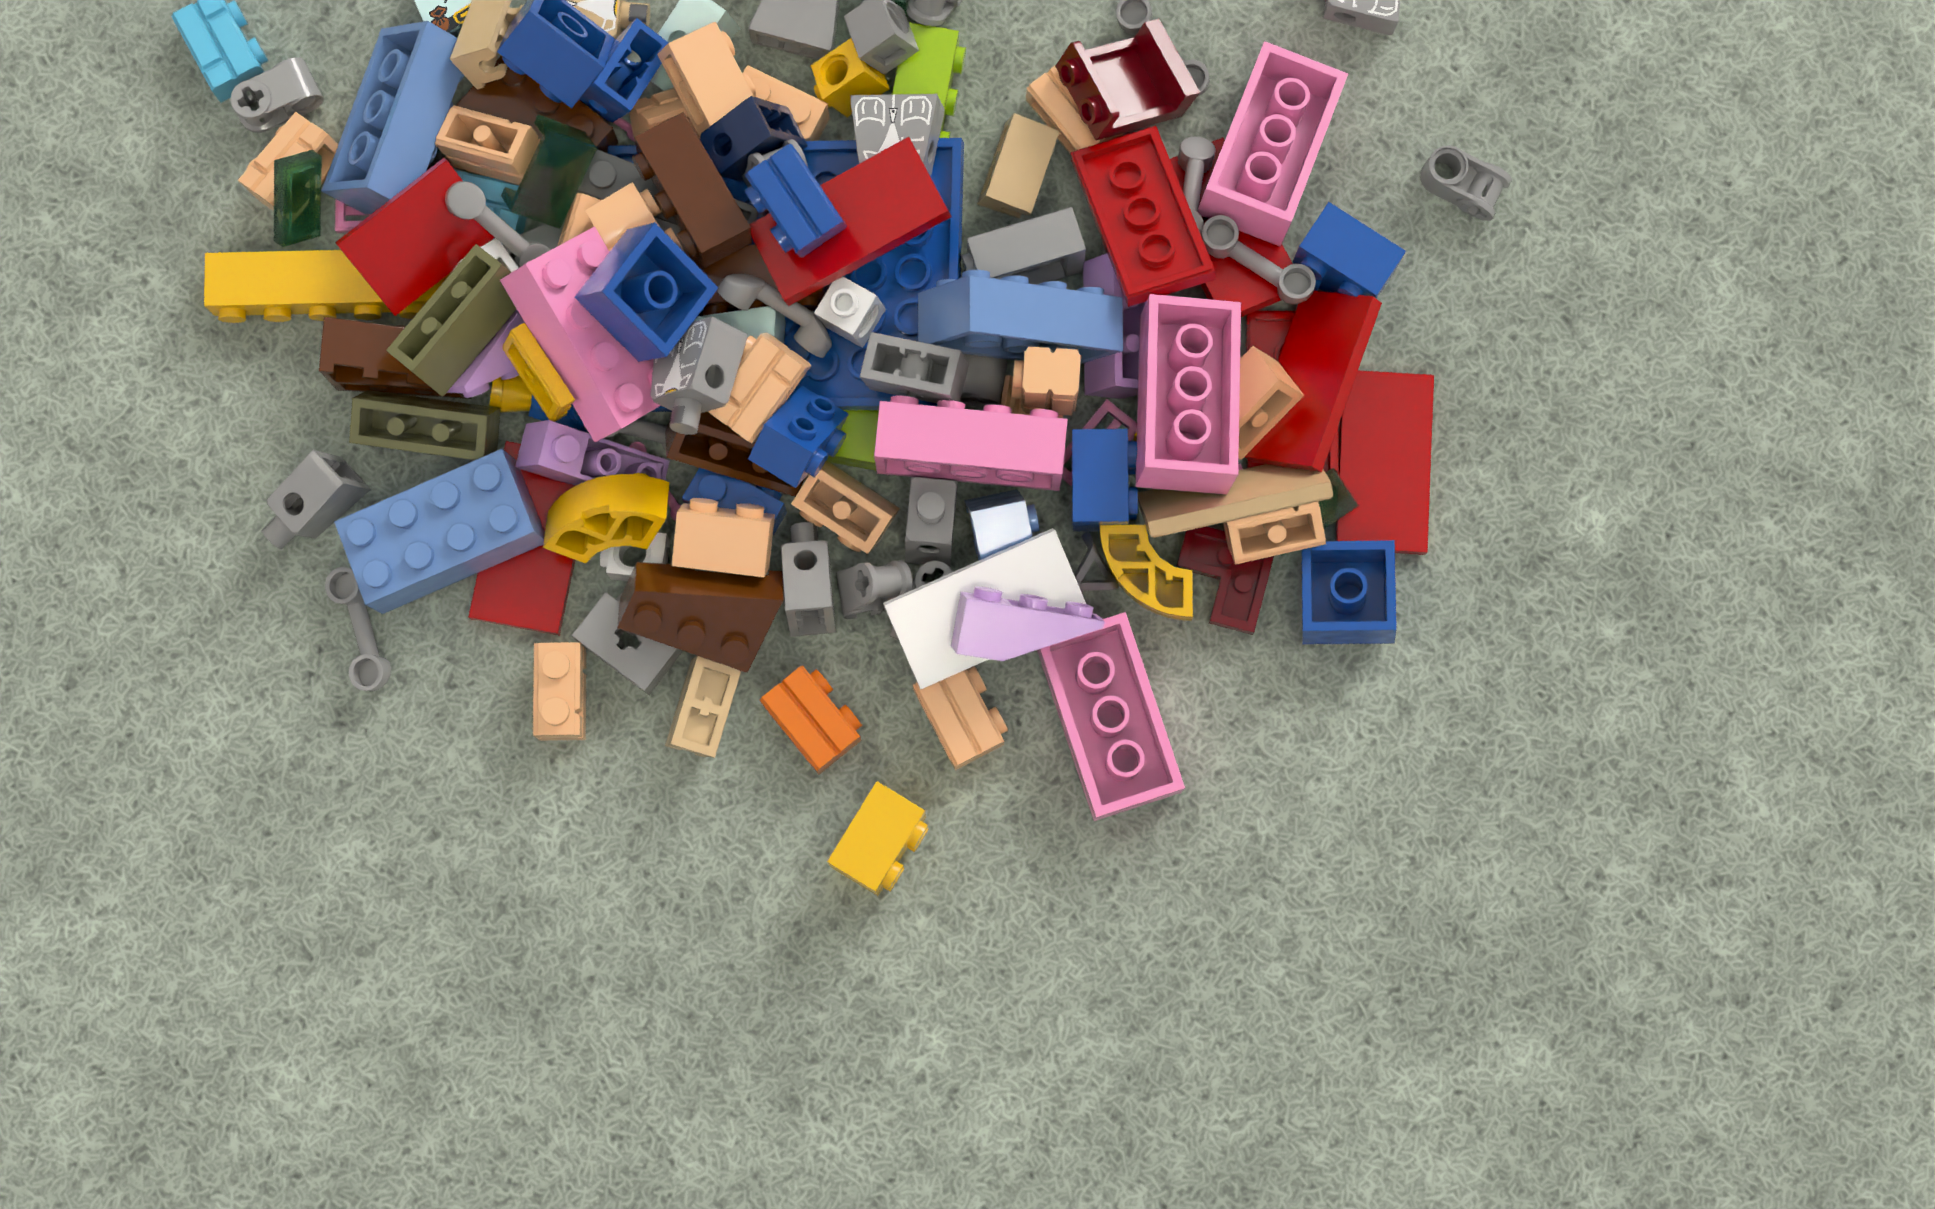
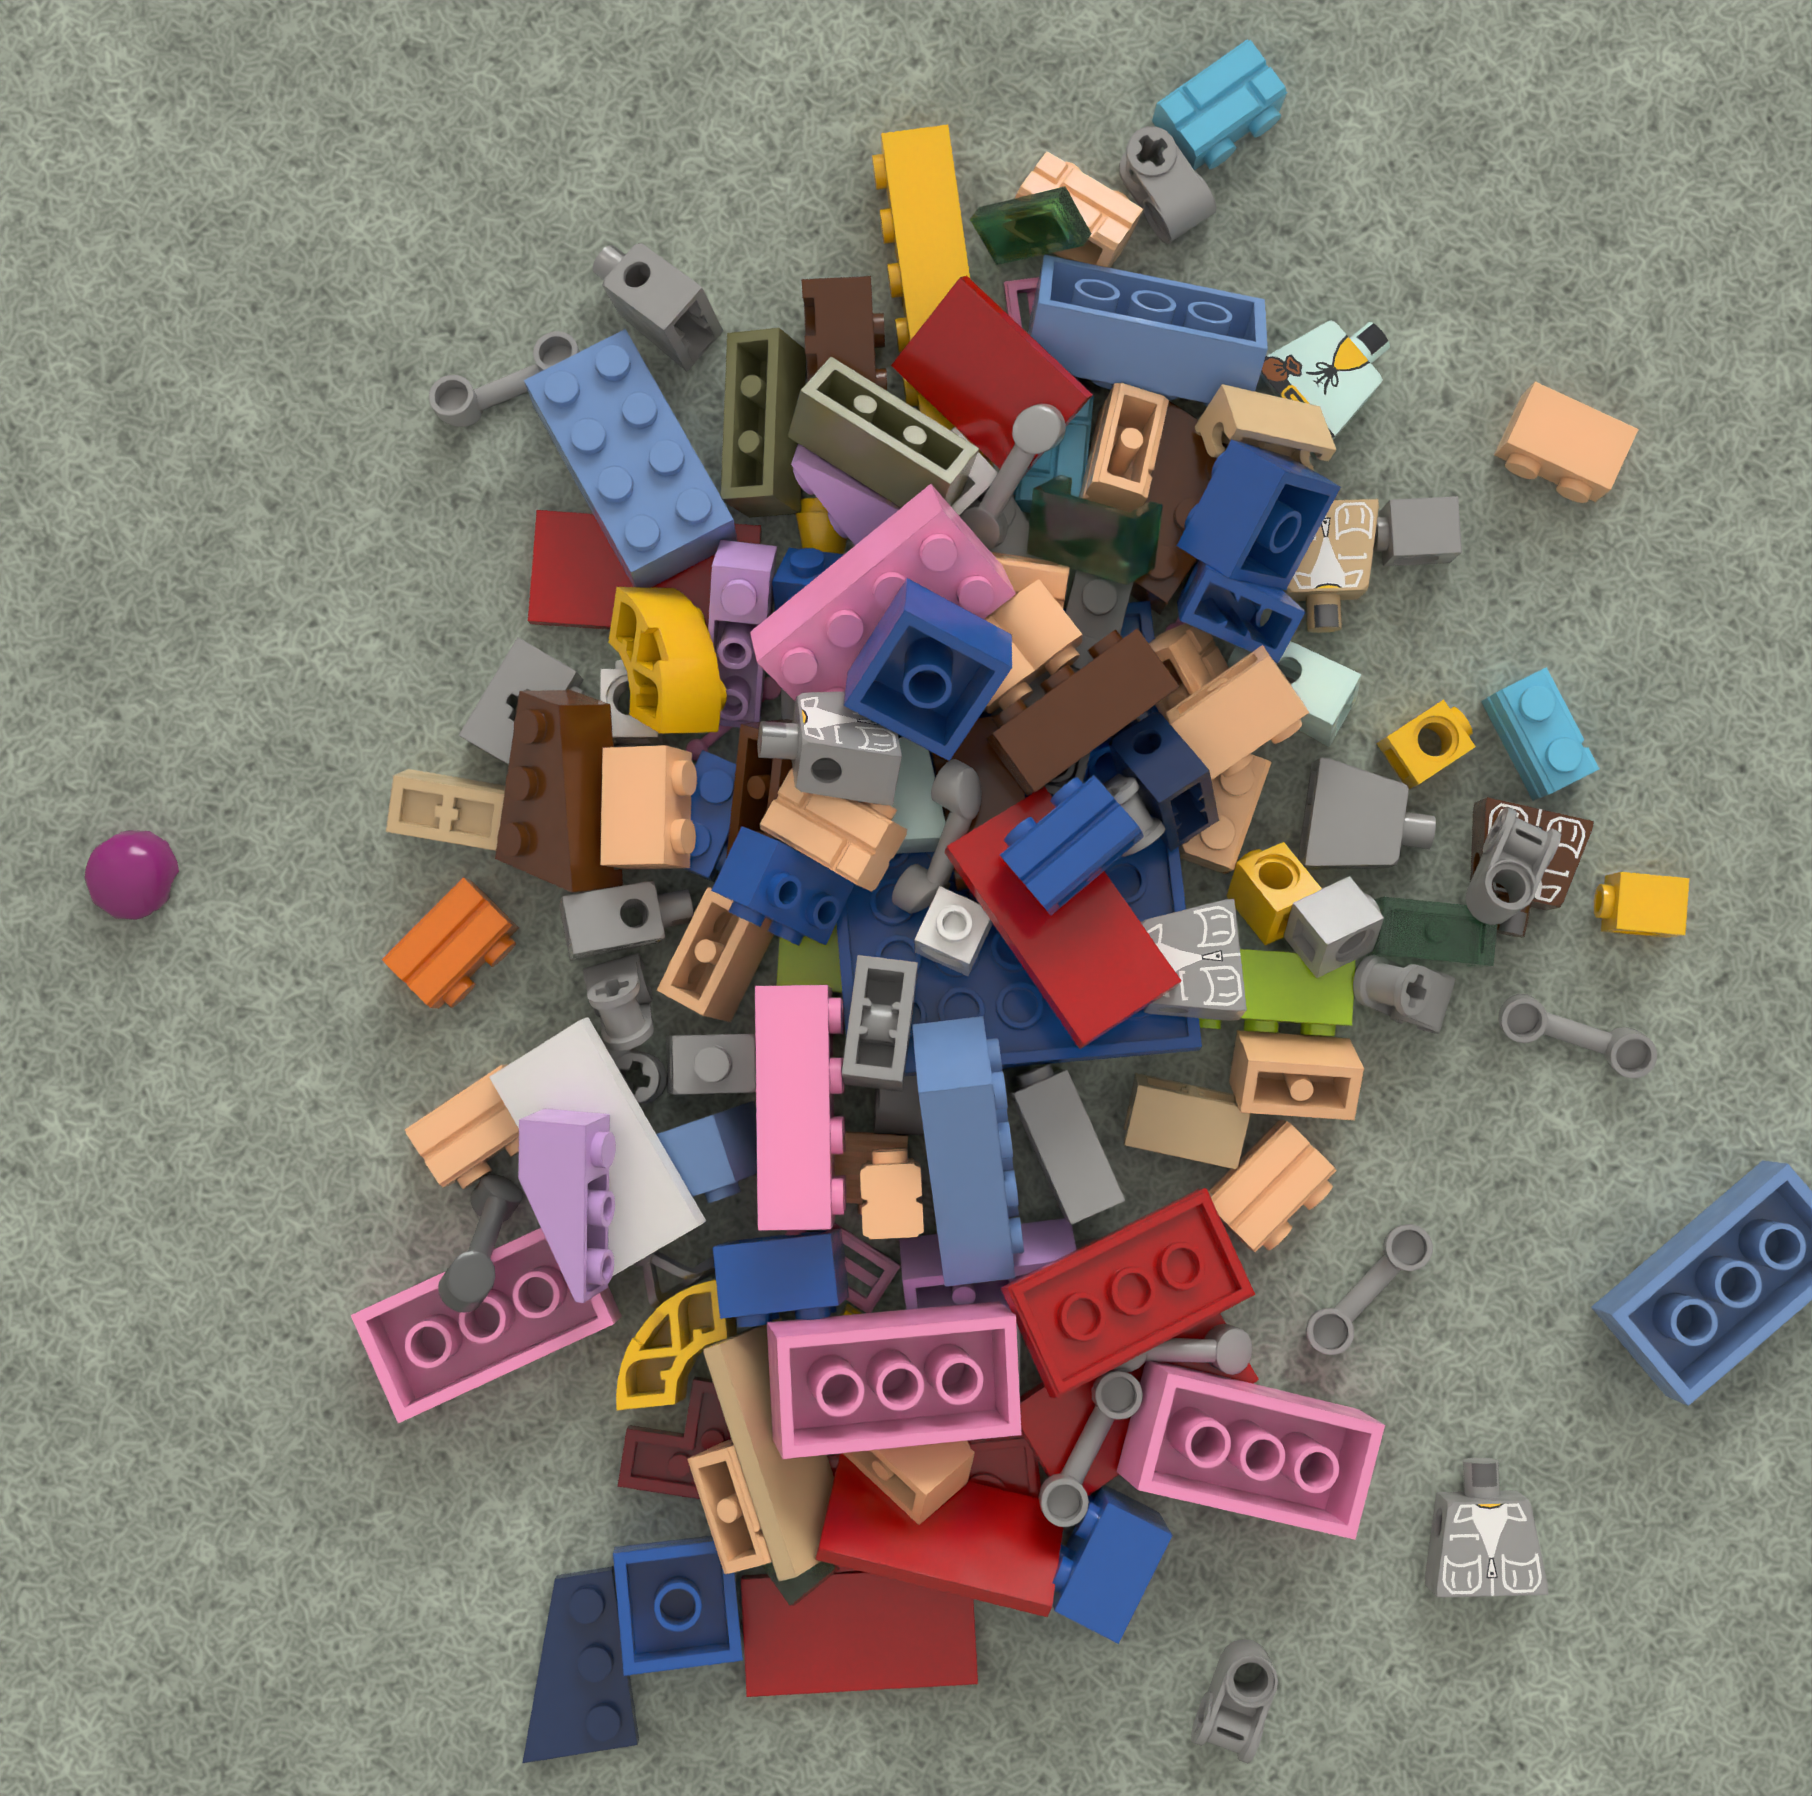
camera: 80 degrees right, 5 degrees up
(538, 372) = (826, 549): yellow tile -> none
(559, 691) = (450, 632): light nougat brick -> none
(722, 976) = (131, 874): none -> magenta hair
(878, 840) = (299, 1045): yellow brick -> none
(992, 78) = (1296, 1075): none -> light nougat brick
(1074, 710) = (473, 1272): none -> dark grey bar
(1128, 82) = (1310, 1251): dark red panel -> none
(1398, 678) = (580, 1687): none -> dark blue wing

